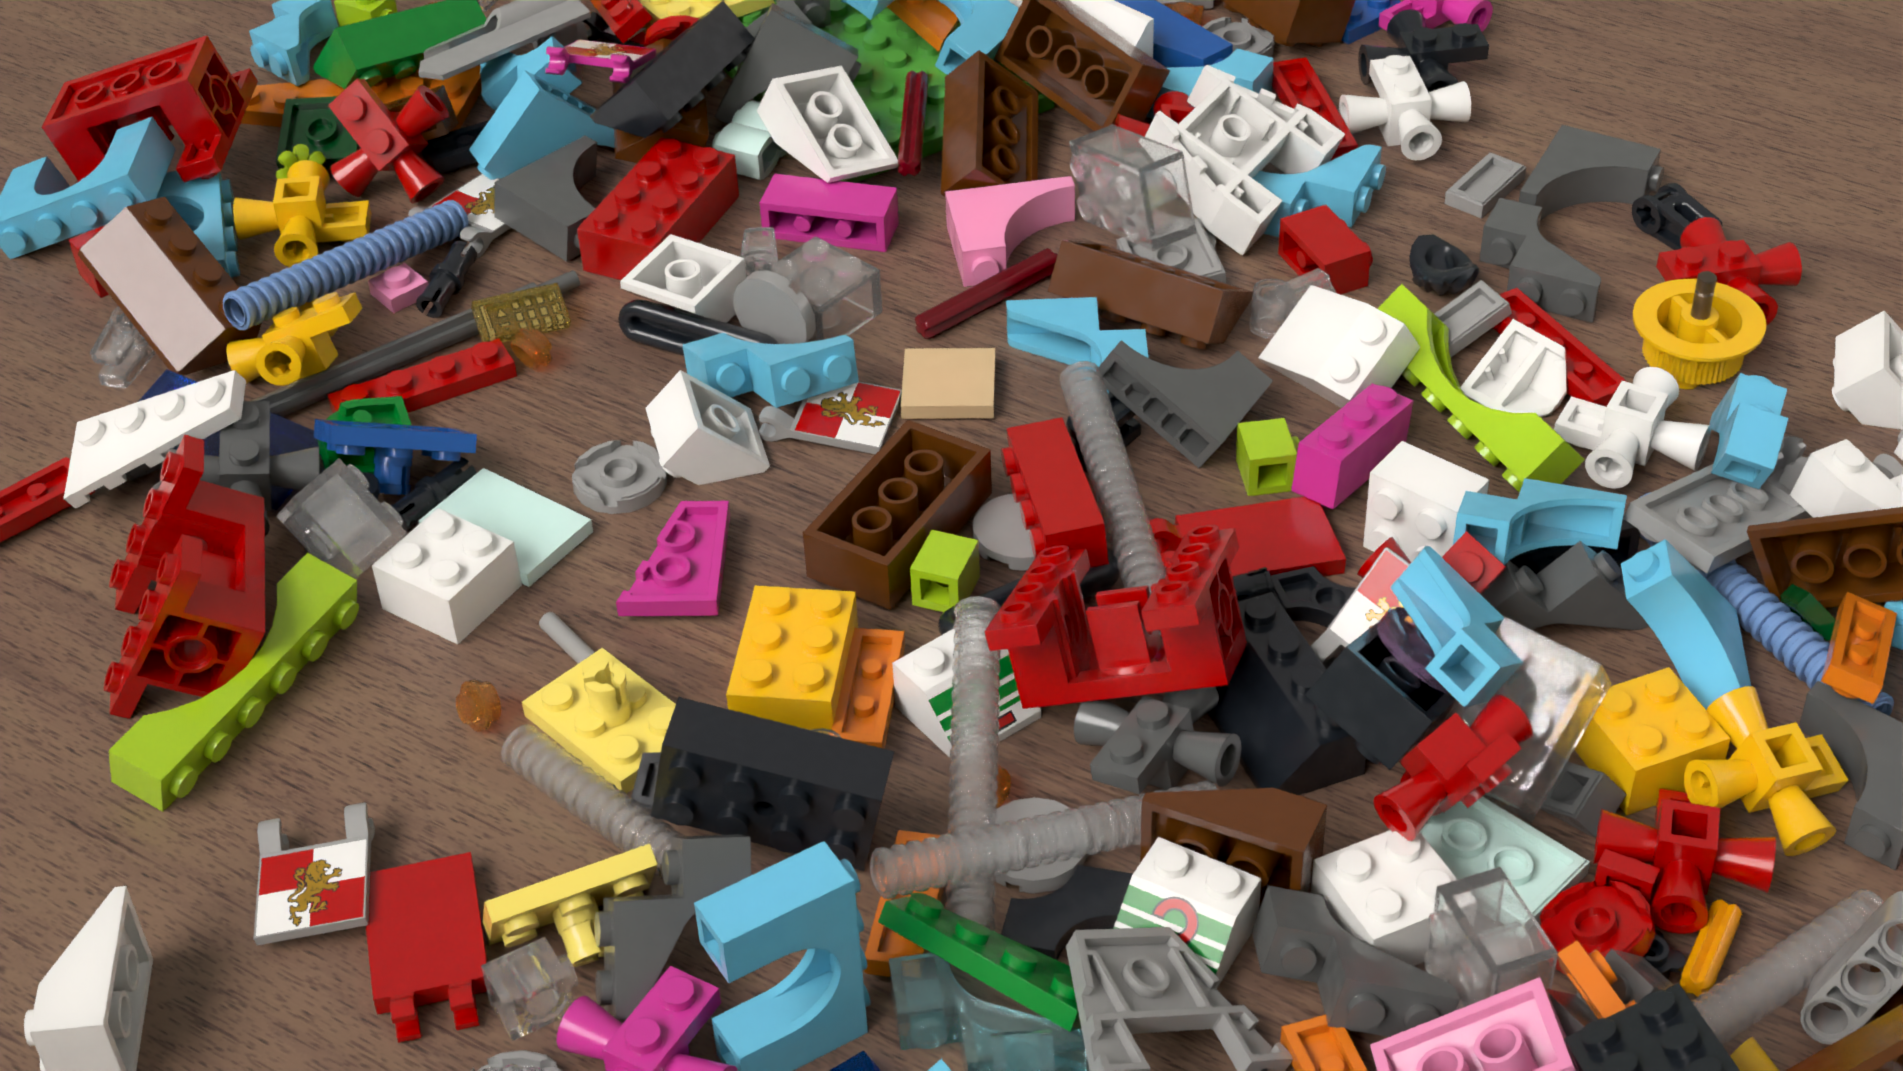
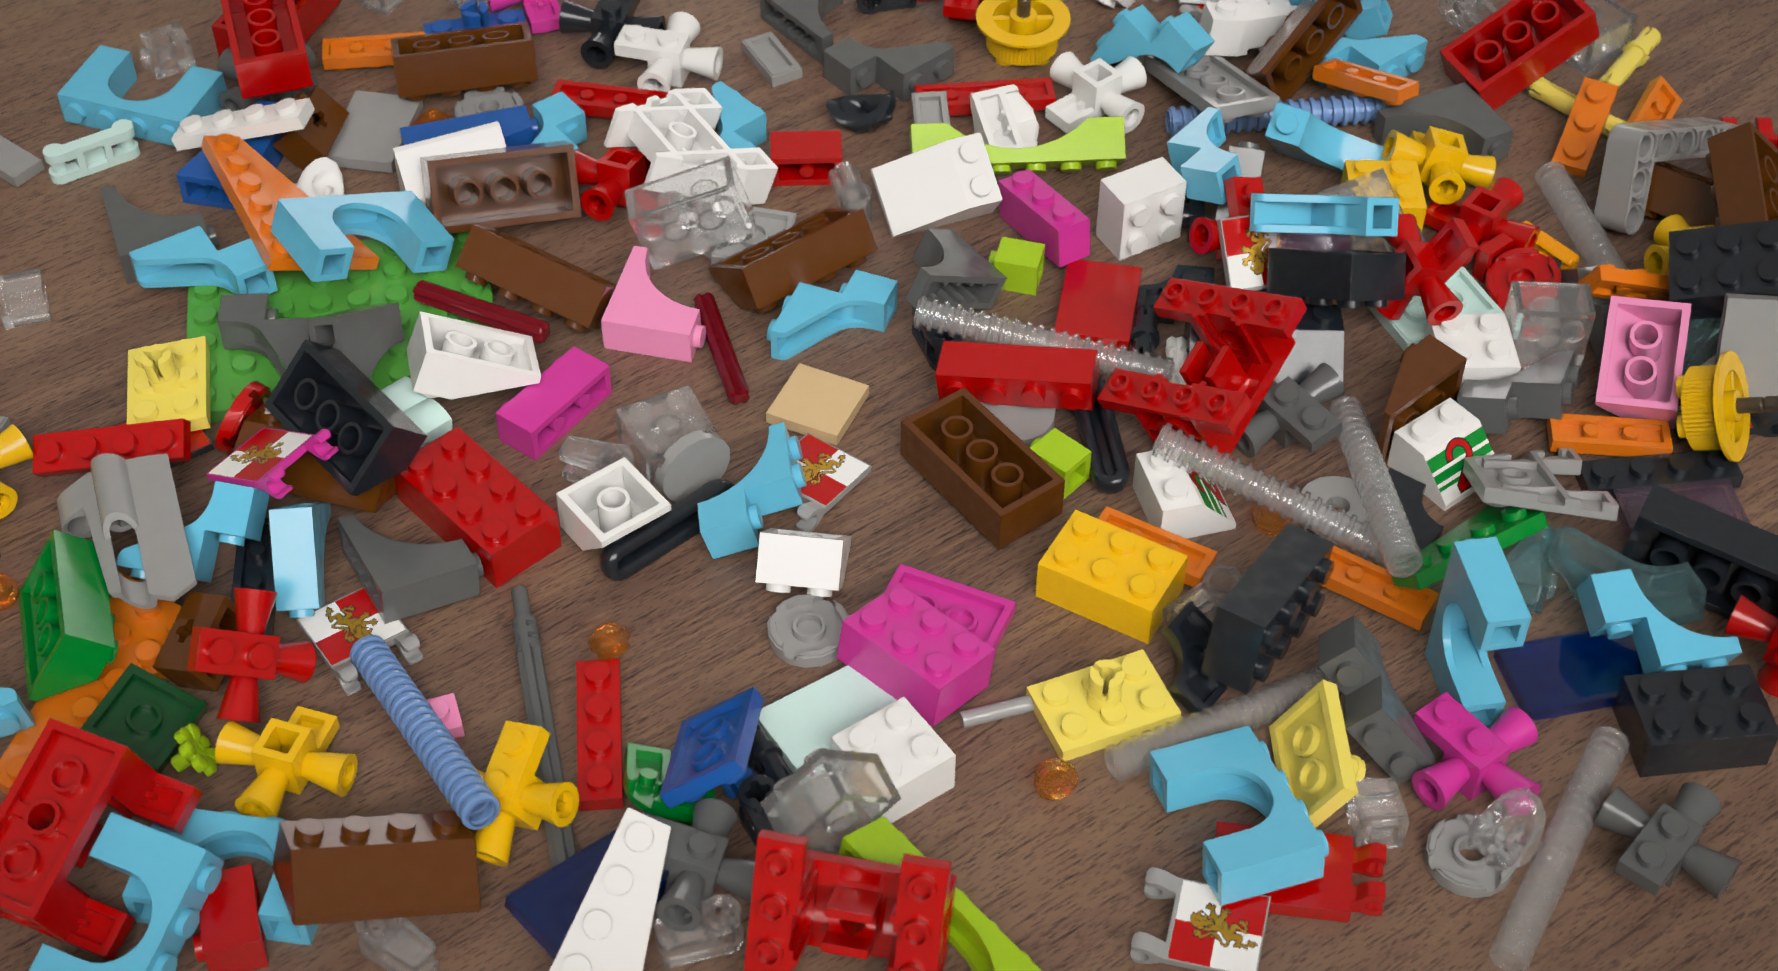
camera: 70 degrees left, 5 degrees up
(425, 896) = (1239, 768): none -> medium azure arch
(446, 279) = (459, 678): black pin -> none
(529, 309) = (555, 637): clear yellow tile -> none
(593, 544) = (916, 653): none -> dark pink brick
(1809, 610) = (1310, 88): dark green tile -> none

